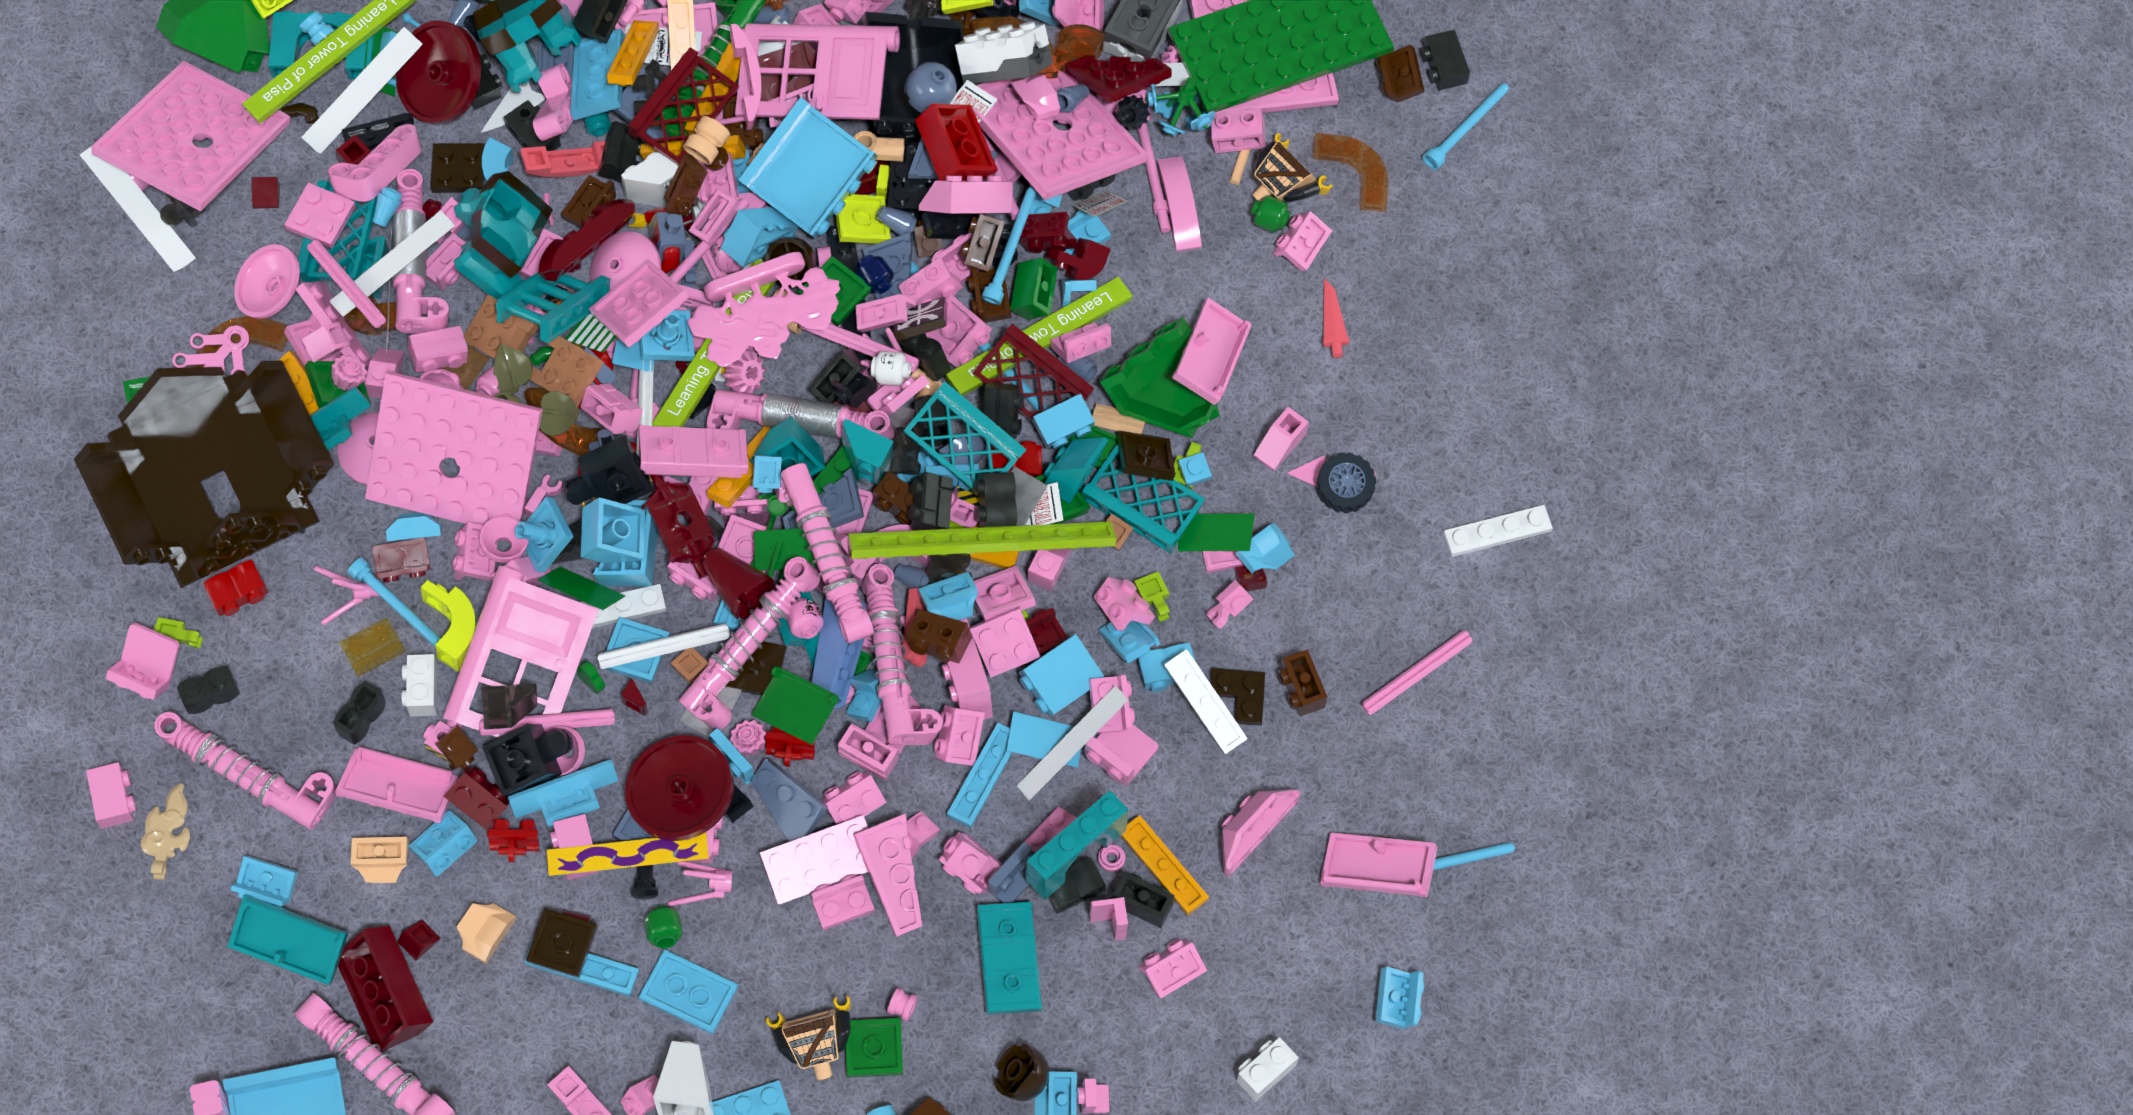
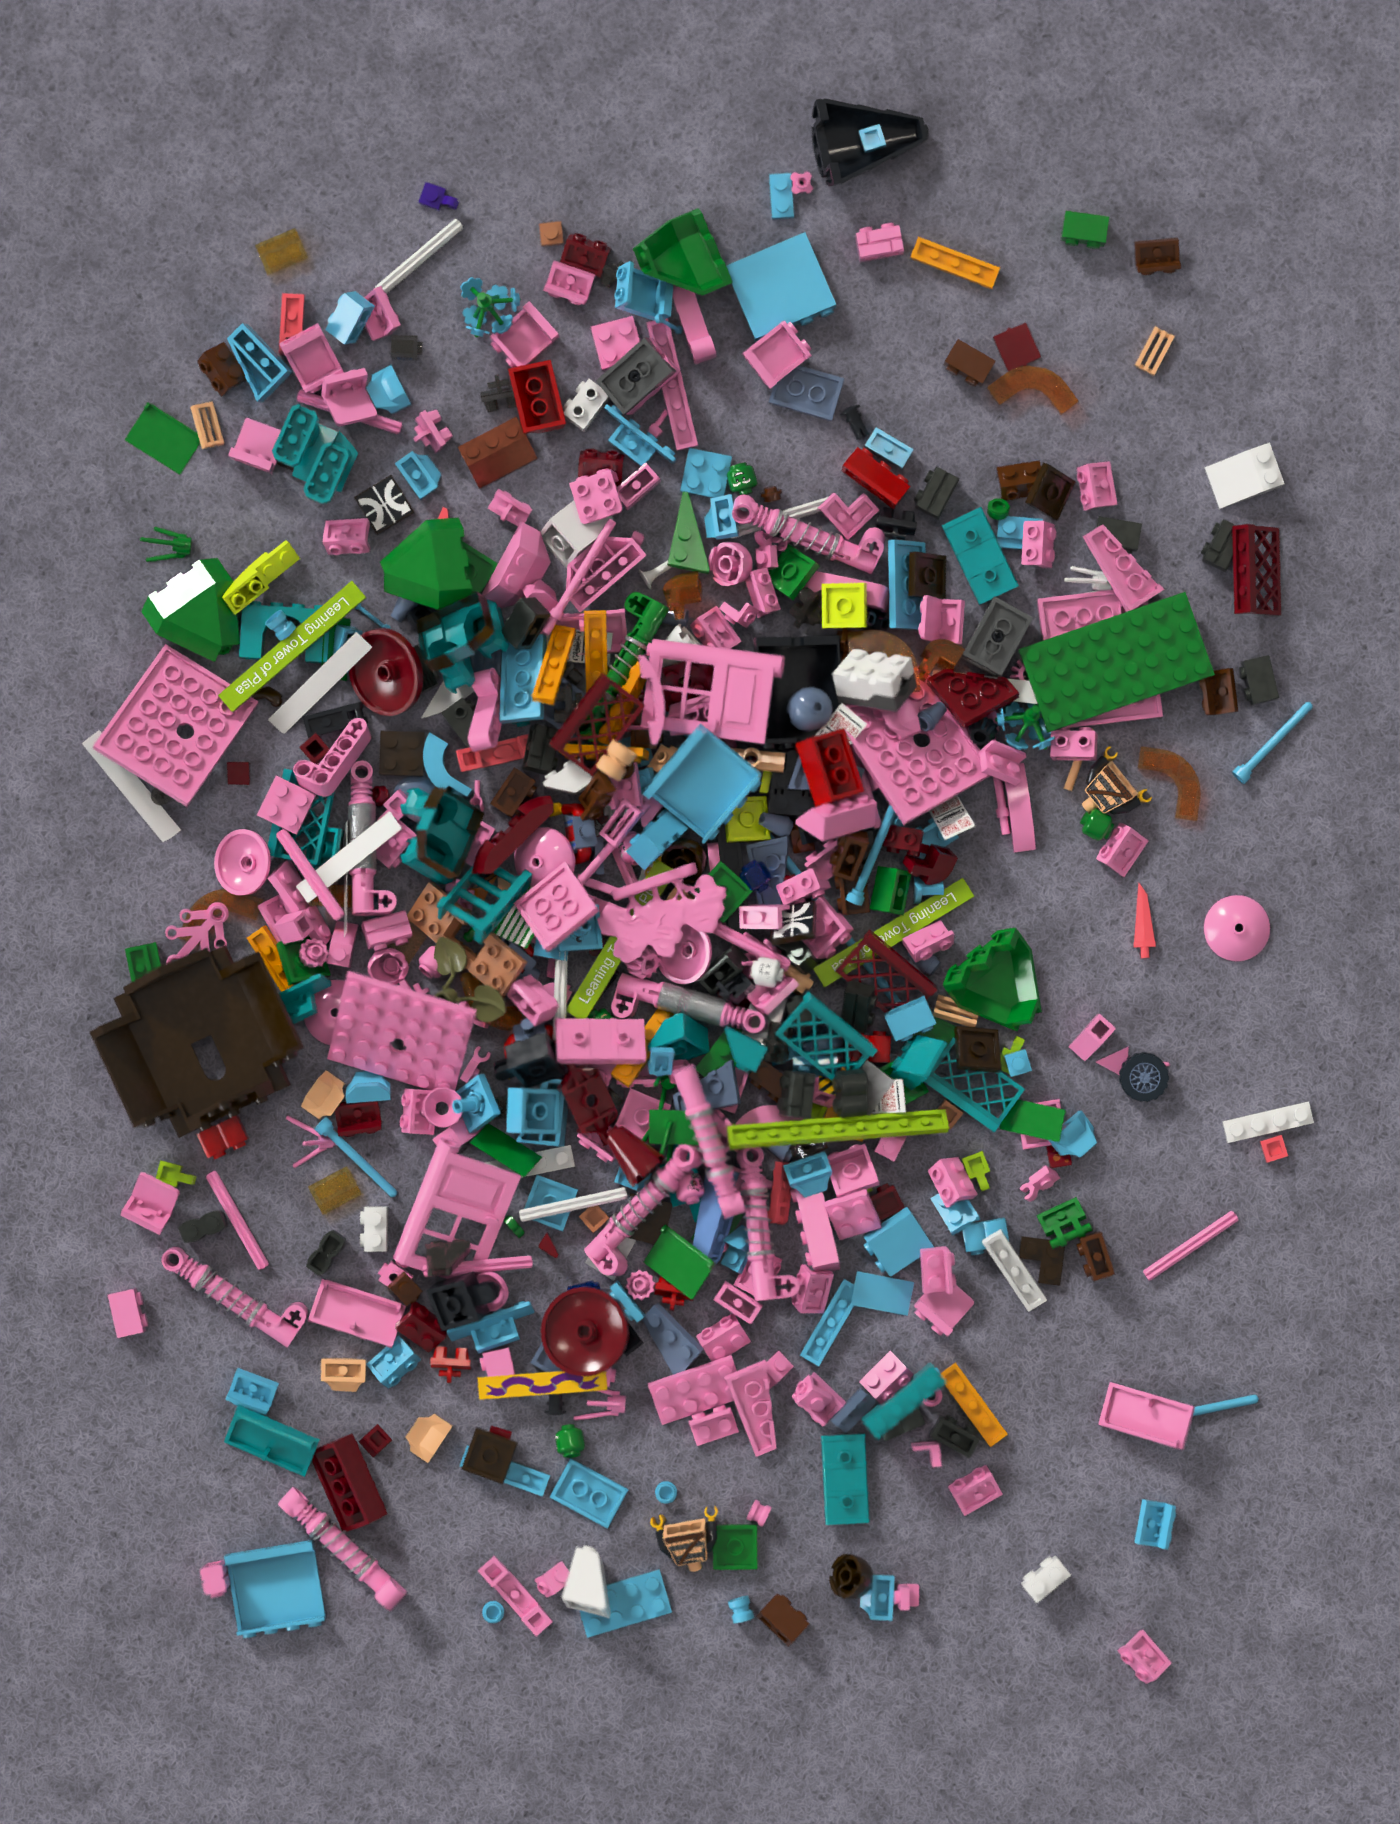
camera: 10 degrees right, 20 degrees up
(158, 835) = (166, 1339): tan piece -> none
(251, 685) = (237, 1220): none -> bright pink axle
(358, 537) = (324, 1095): none -> light nougat slope
(386, 205) = (343, 798): medium azure cone -> none
(459, 610) = (409, 1185): neon yellow arch -> none
(785, 374) = (684, 965): none -> bright pink dish
(785, 986) = (666, 1492): none -> medium azure plate
(938, 636) = (798, 1213): reddish brown brick -> none
(1072, 742) = (904, 1303): white sticker -> none
(1156, 143) = (1001, 761): none -> bright pink bracket
(1212, 351) = (1039, 956): bright pink container -> none
(1253, 824) = (1047, 1374): bright pink wedge -> none
(1258, 643) = (1061, 1217): none -> green plate
(1440, 335) = (1221, 932): none -> bright pink dish
(1507, 558) = (1273, 1148): none -> coral plate

